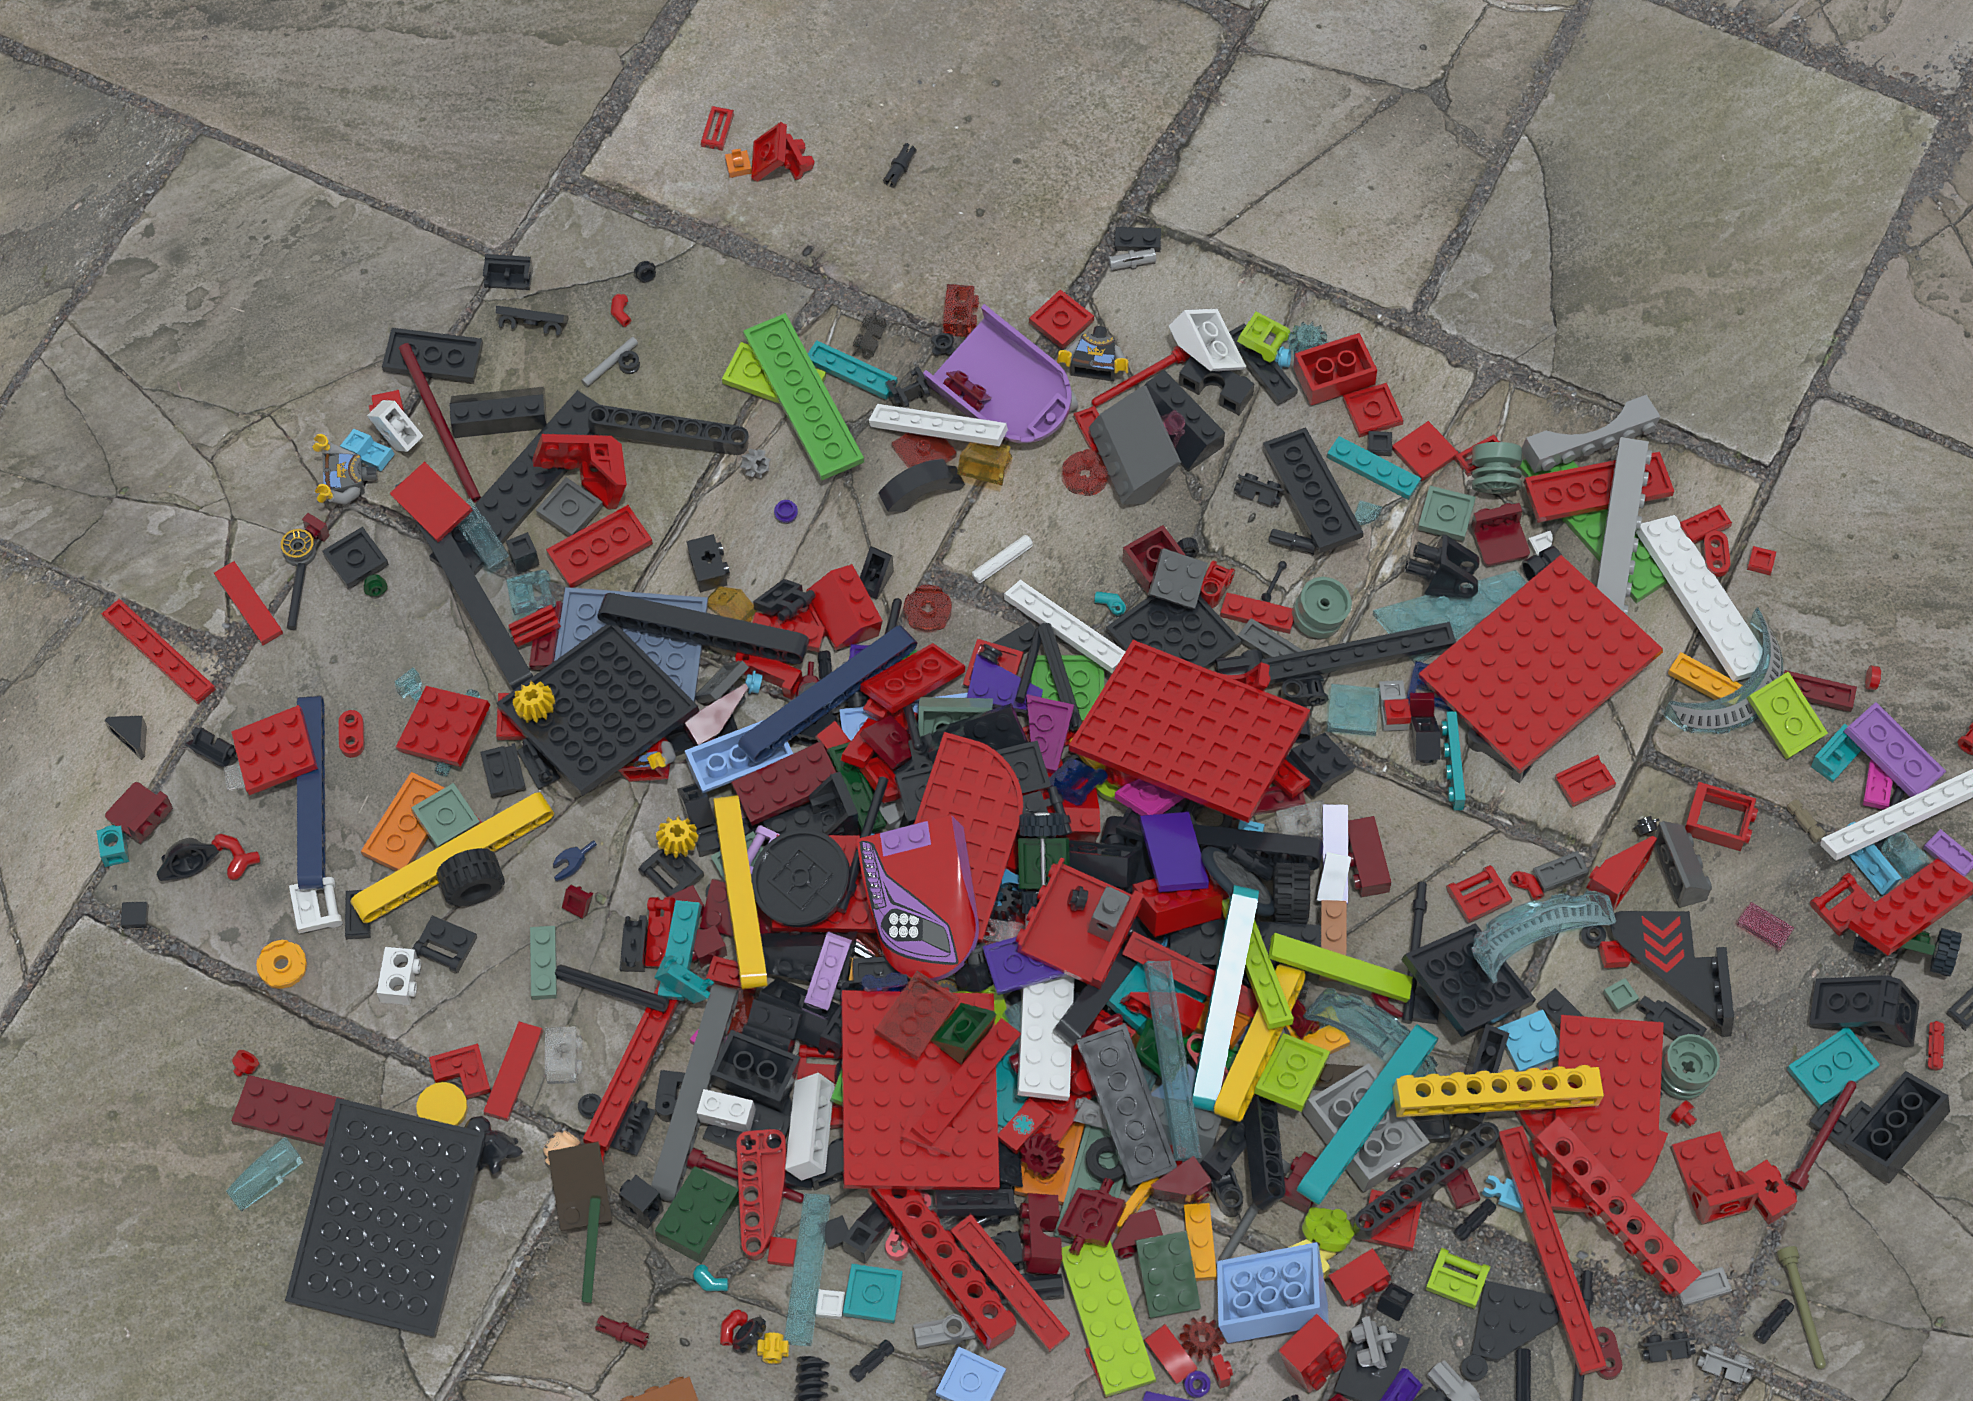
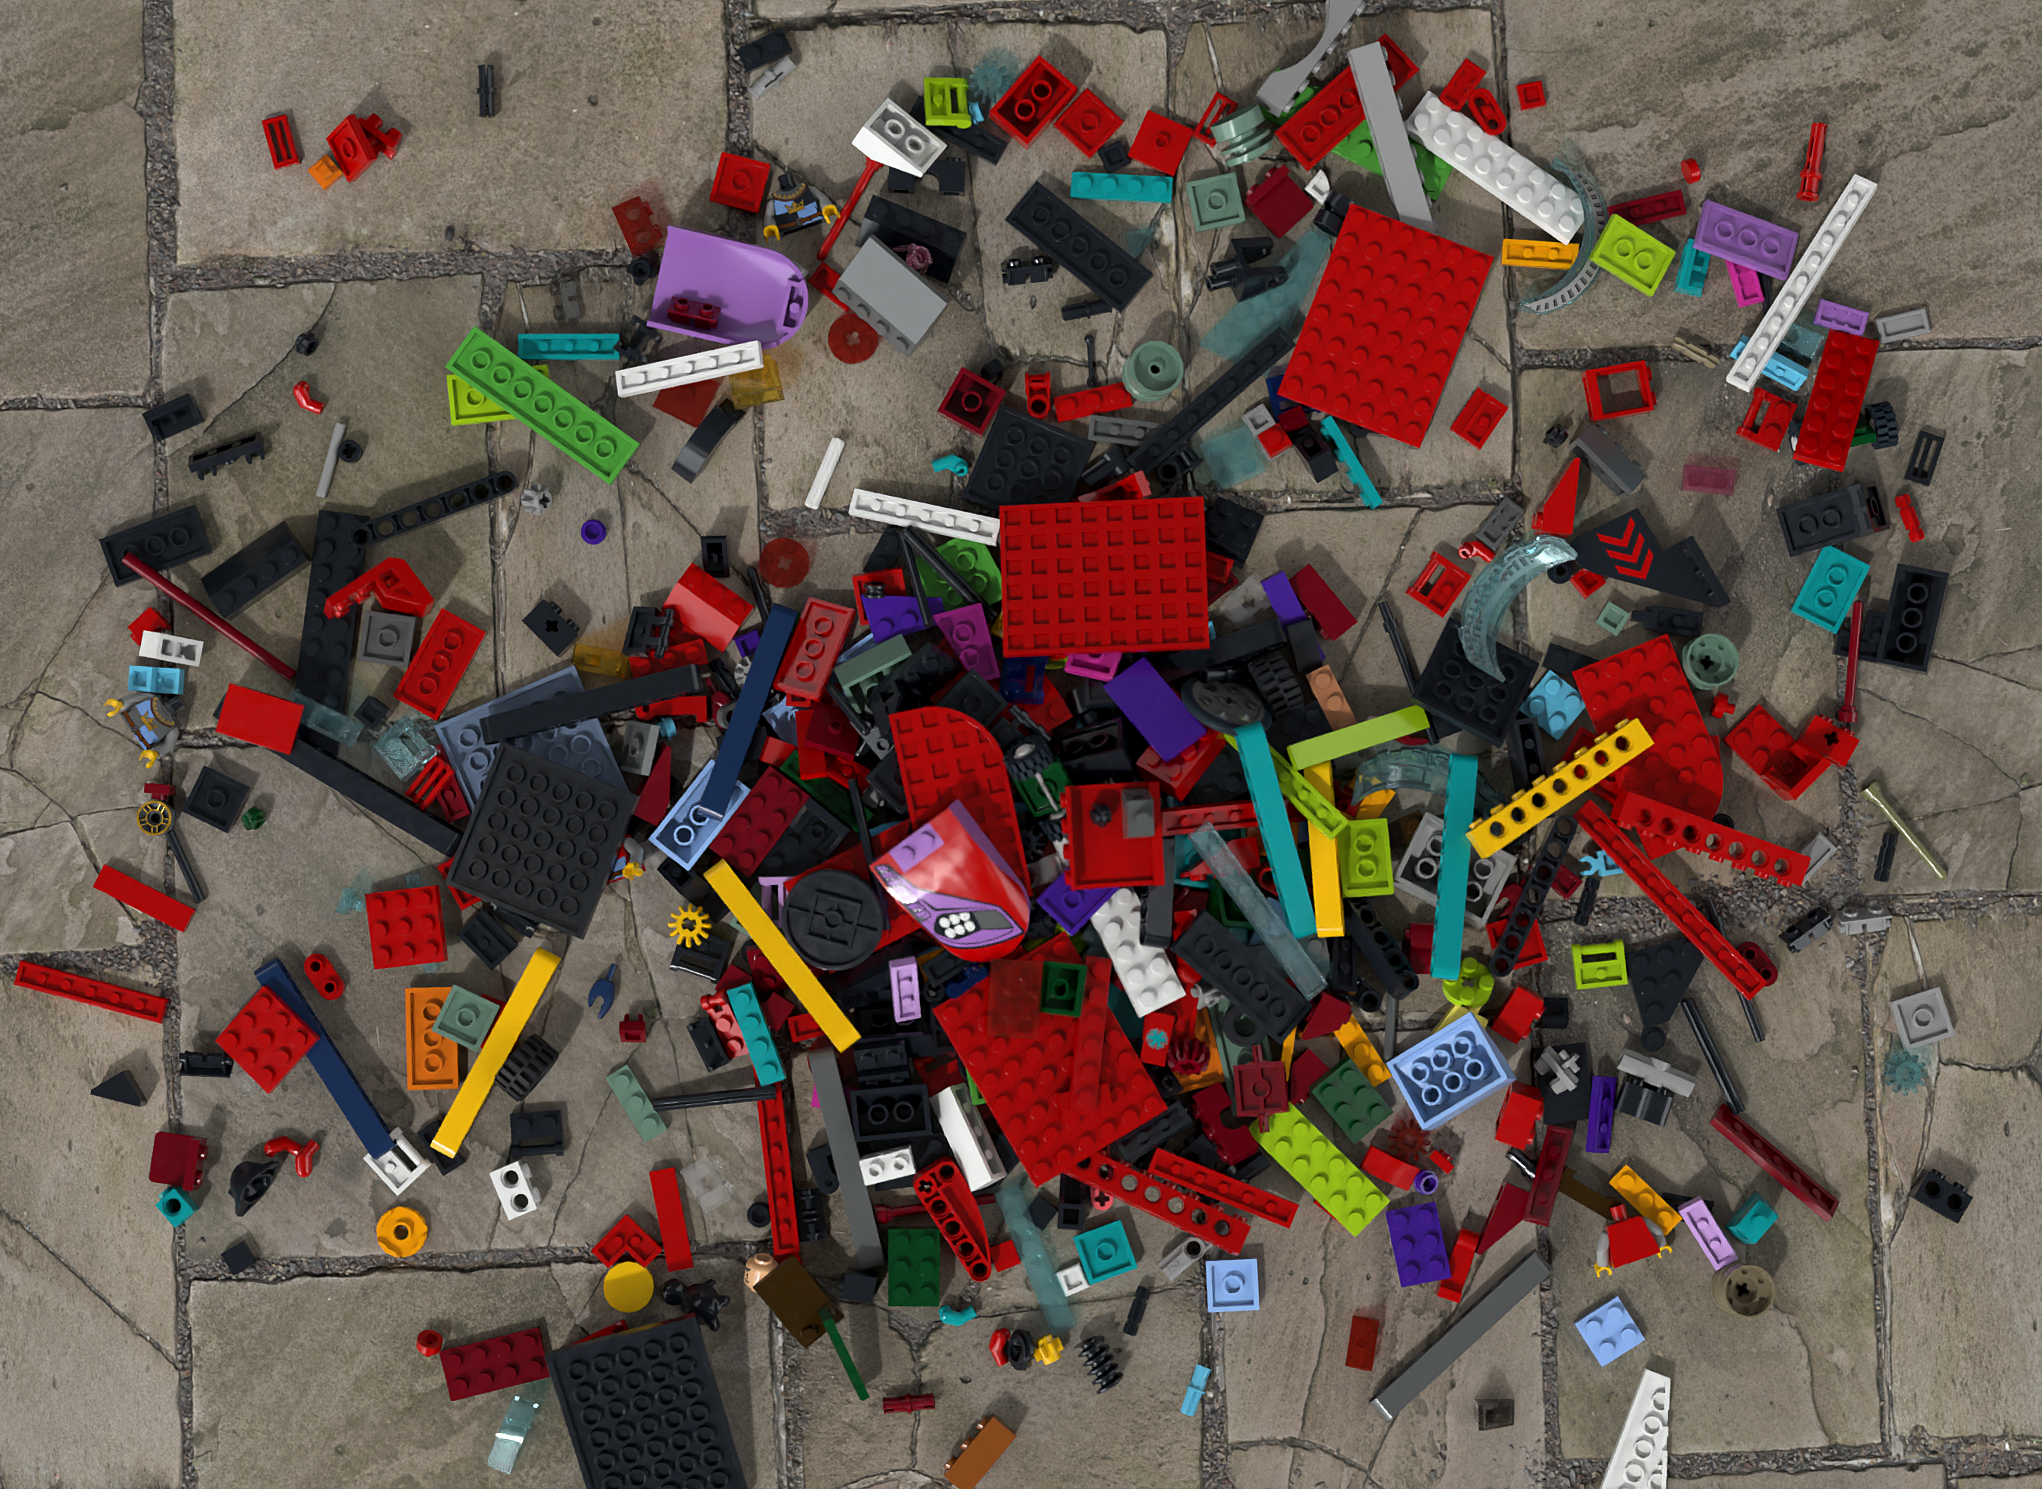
camera: 30 degrees left, 25 degrees up
(534, 701) = (478, 862): yellow gear -> none
(682, 980) = (779, 1065): teal hinge -> none
(1177, 578) = (1006, 417): dark grey plate -> none

